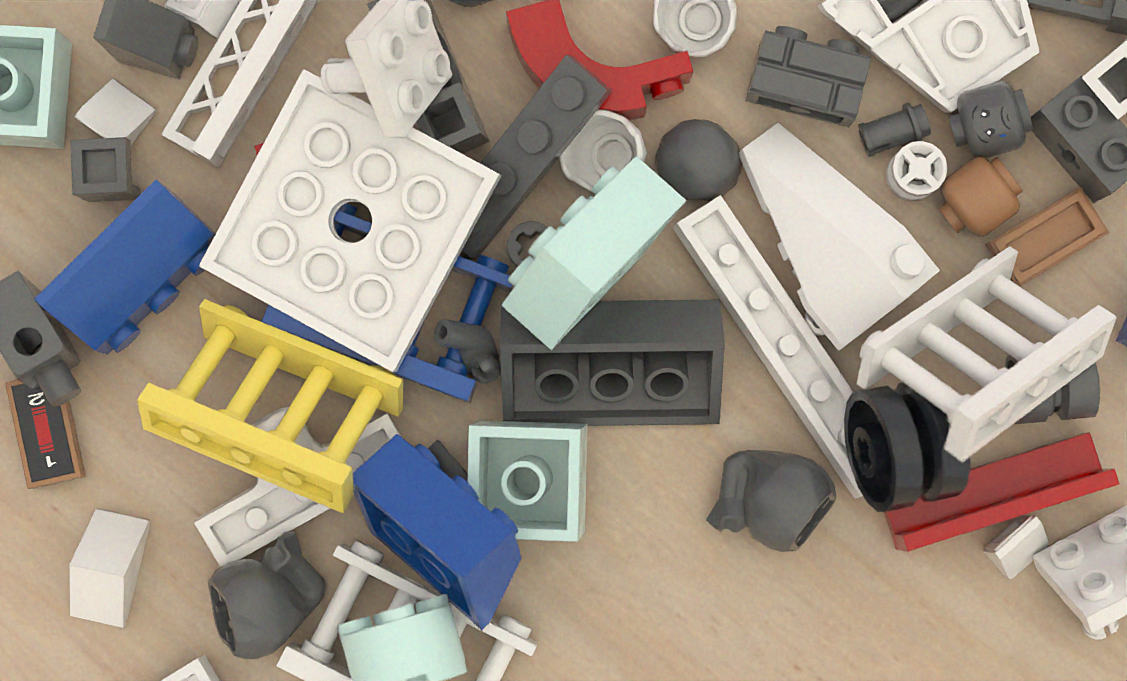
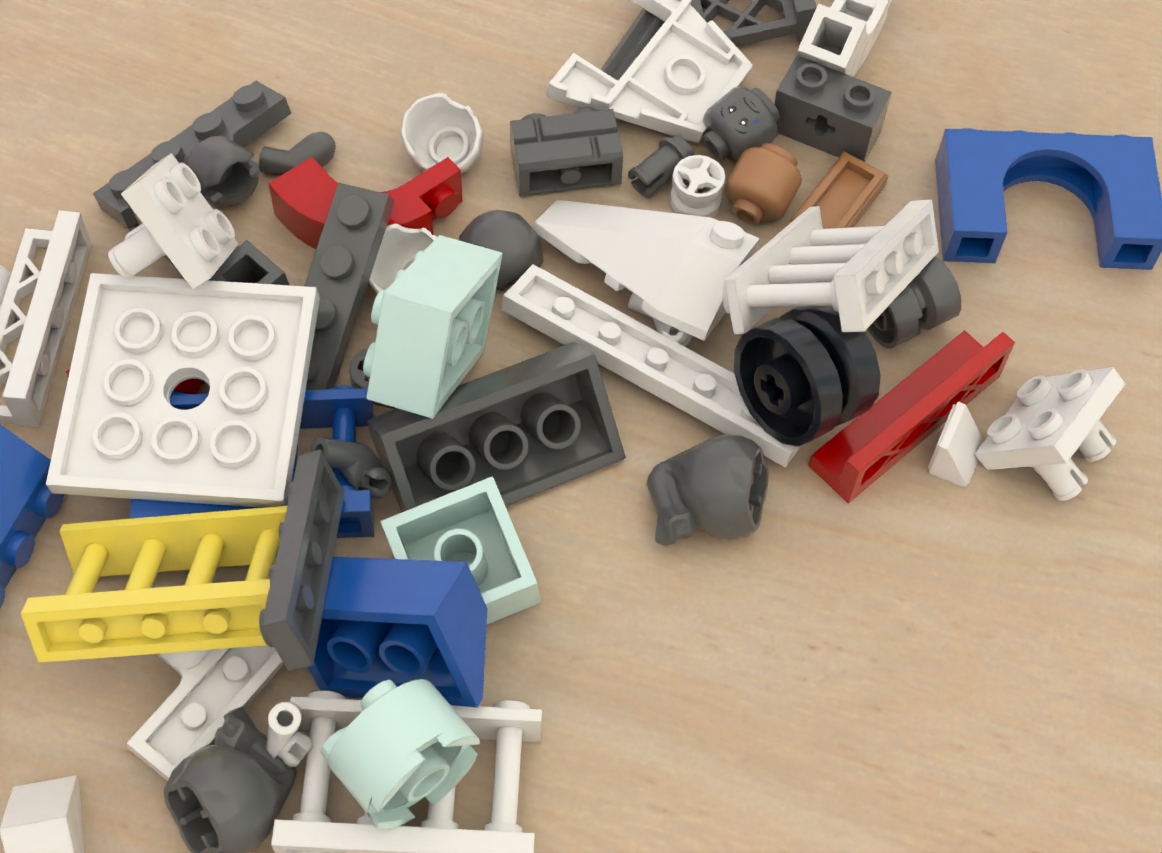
camera: 25 degrees left, 25 degrees down
(322, 577) = (282, 735): none -> white arm
(377, 468) = (303, 562): none -> dark grey plate

